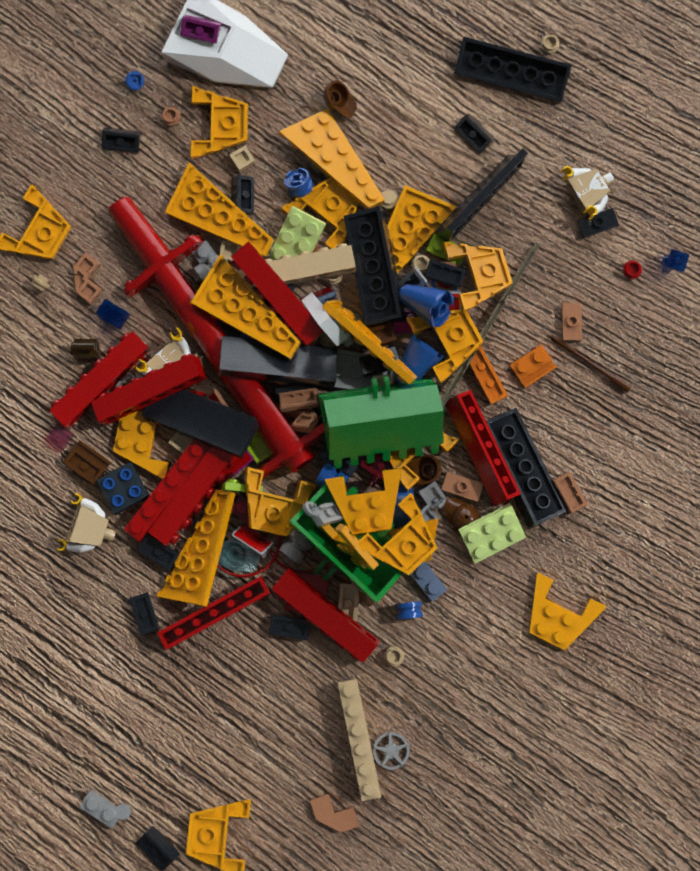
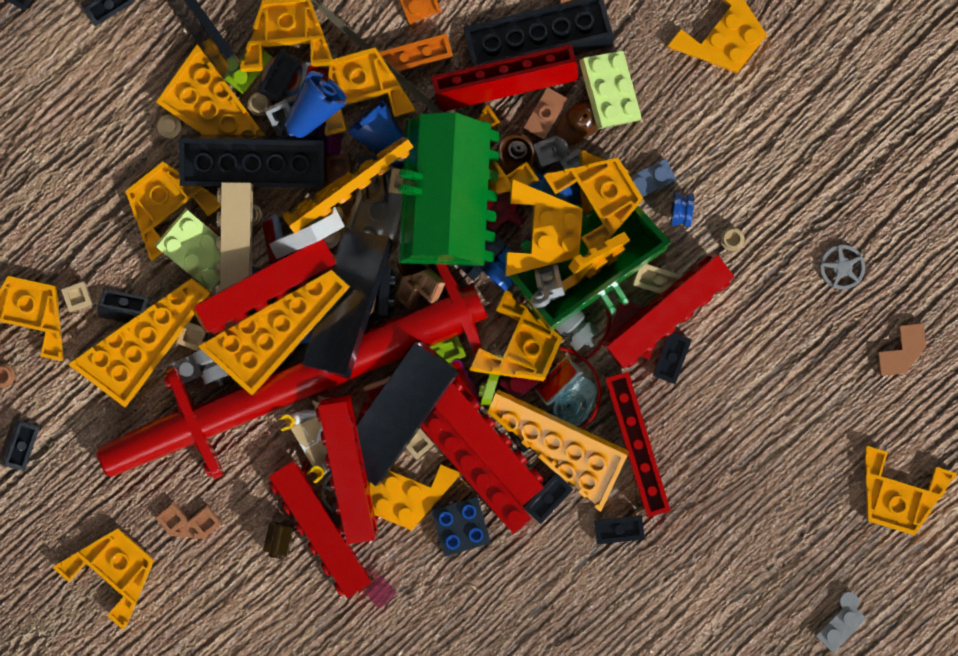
camera: 80 degrees left, 5 degrees up
(40, 282) = (181, 579): tan plate -> none
(87, 462) = (419, 564): reddish brown plate -> none
(87, 527) = (500, 579): tan torso -> none
(112, 314) = (241, 497): clear blue bracket -> none
(158, 848) = (900, 568): black slope -> none
(298, 183) = (124, 232): blue wheel -> none
(298, 399) = (399, 288): nougat plate -> none
(331, 153) = (93, 185): light orange wing -> none
(339, 98) = (27, 159): reddish brown cap -> none
(359, 739) = (822, 301): tan brick -> none

